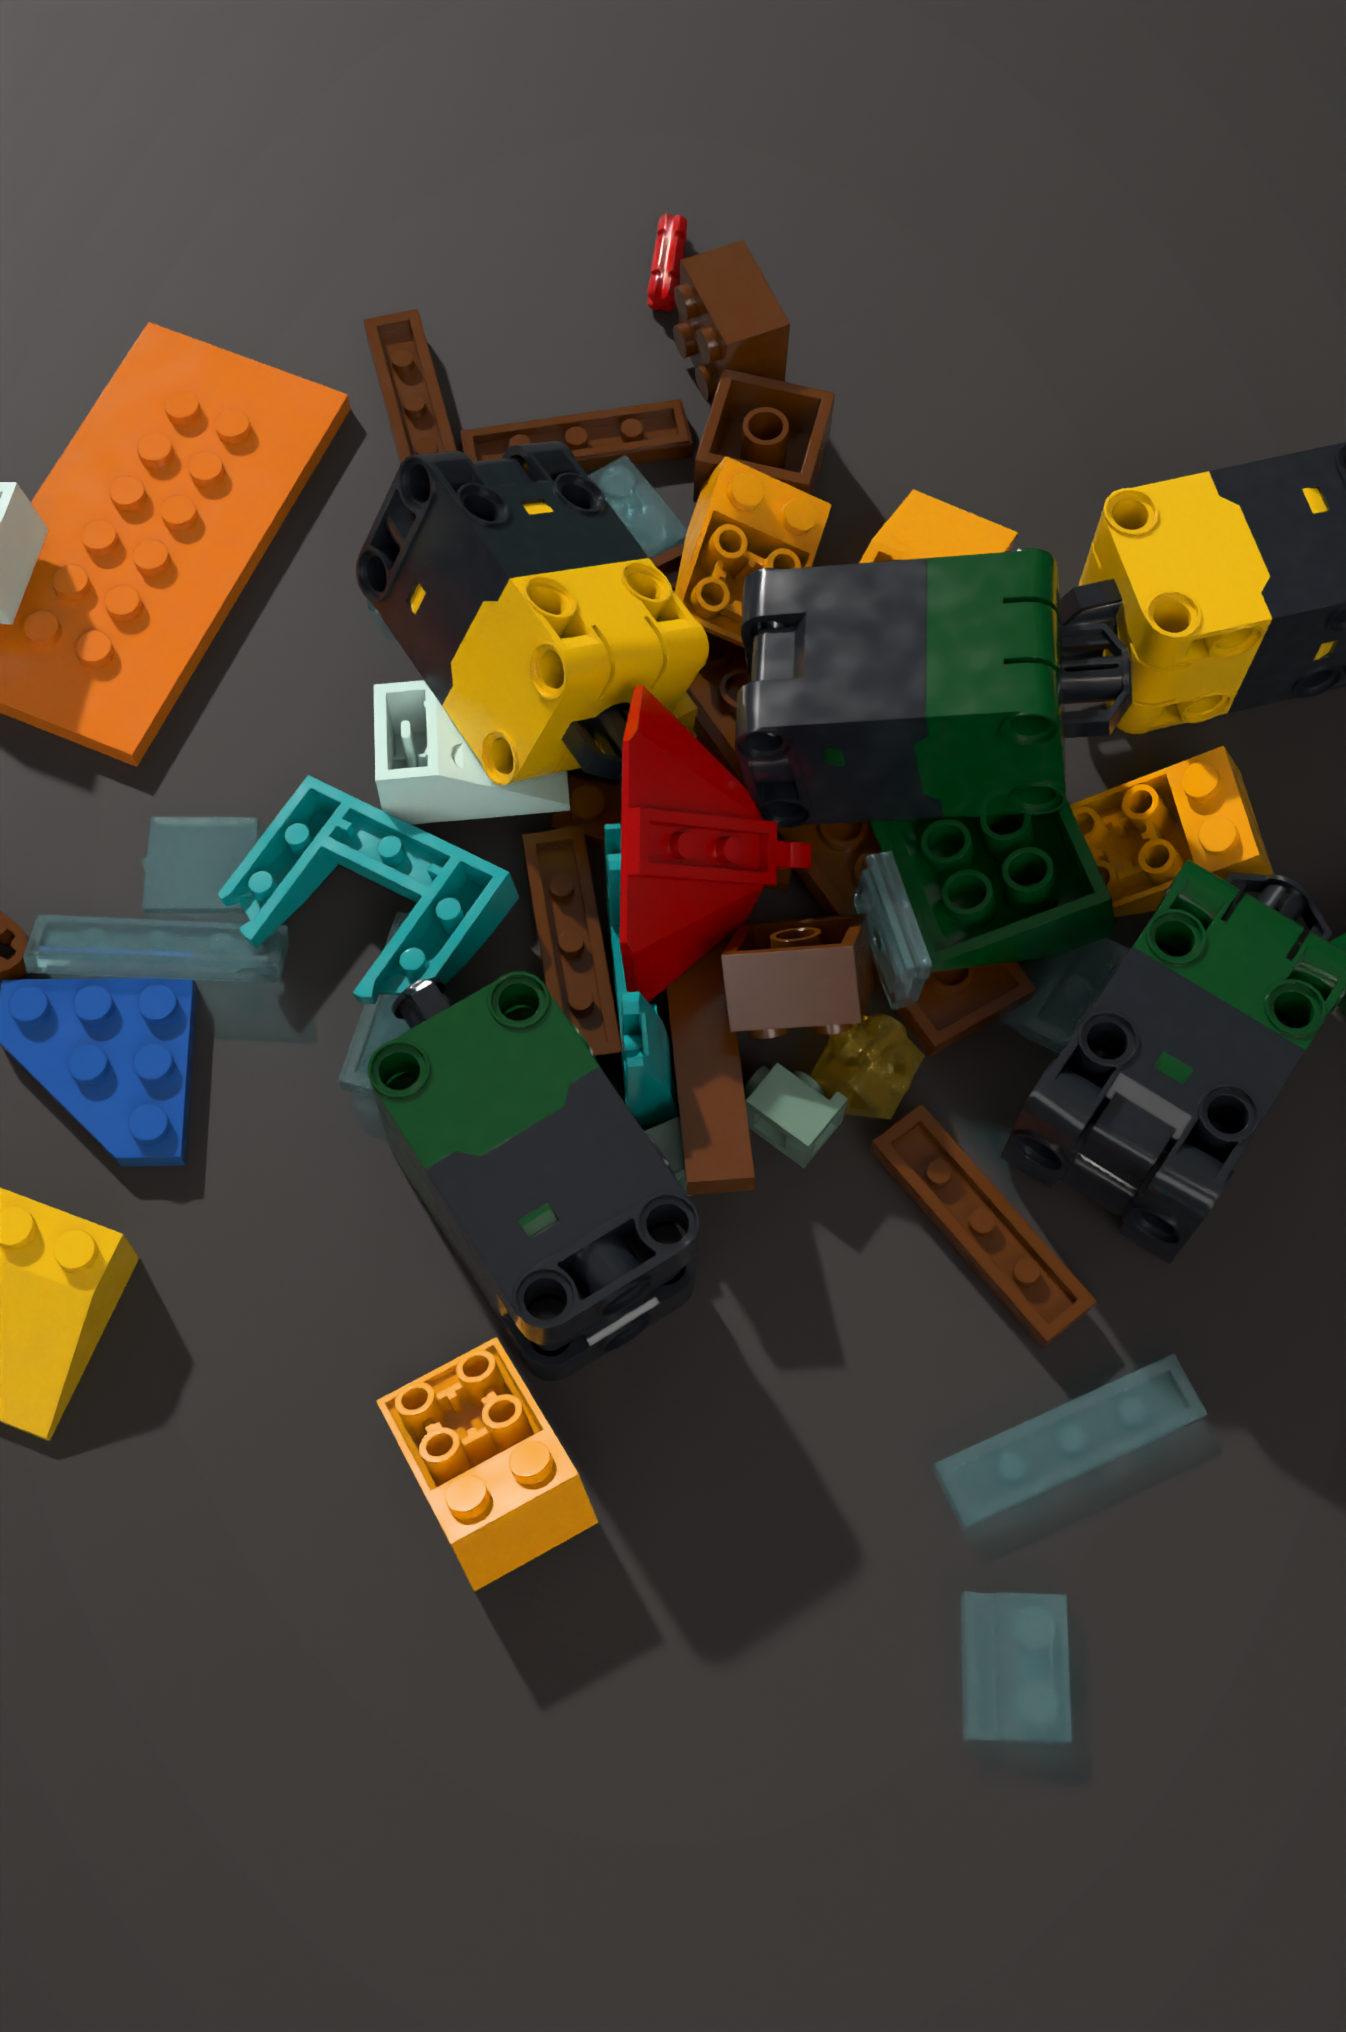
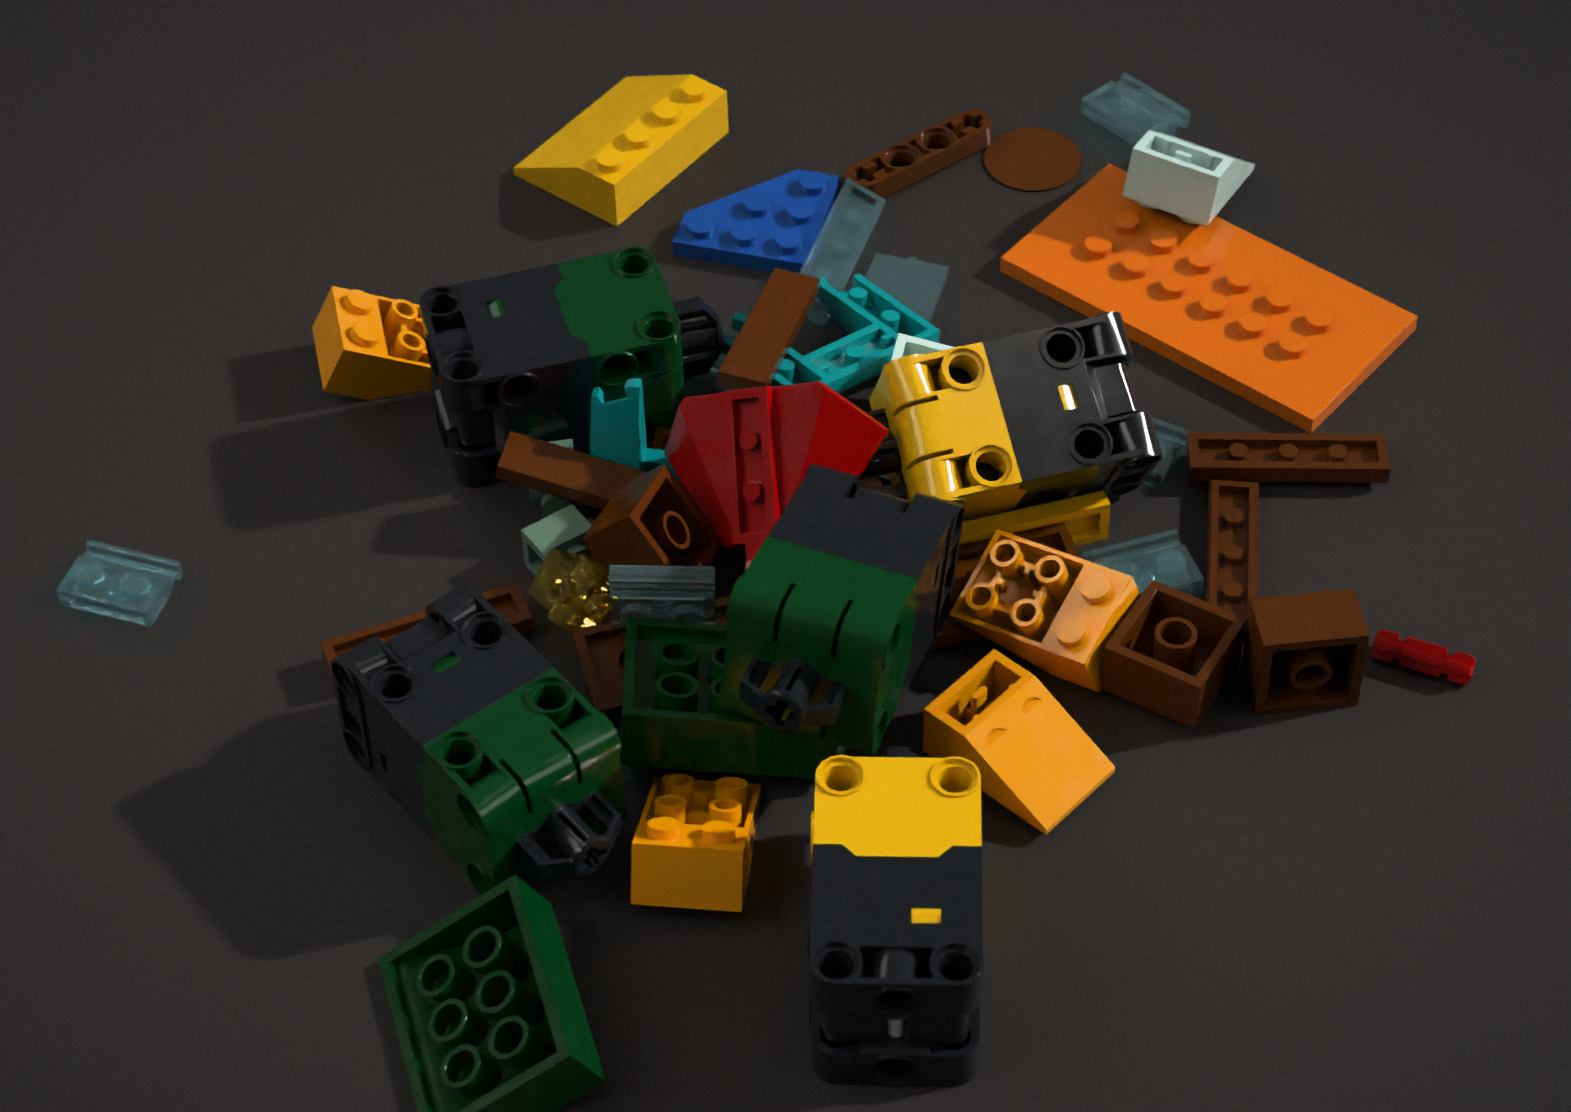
camera: 110 degrees right, 20 degrees down
(399, 936) = (768, 330): none -> reddish brown tile
(1068, 1441) = (250, 655): clear light blue tile -> none

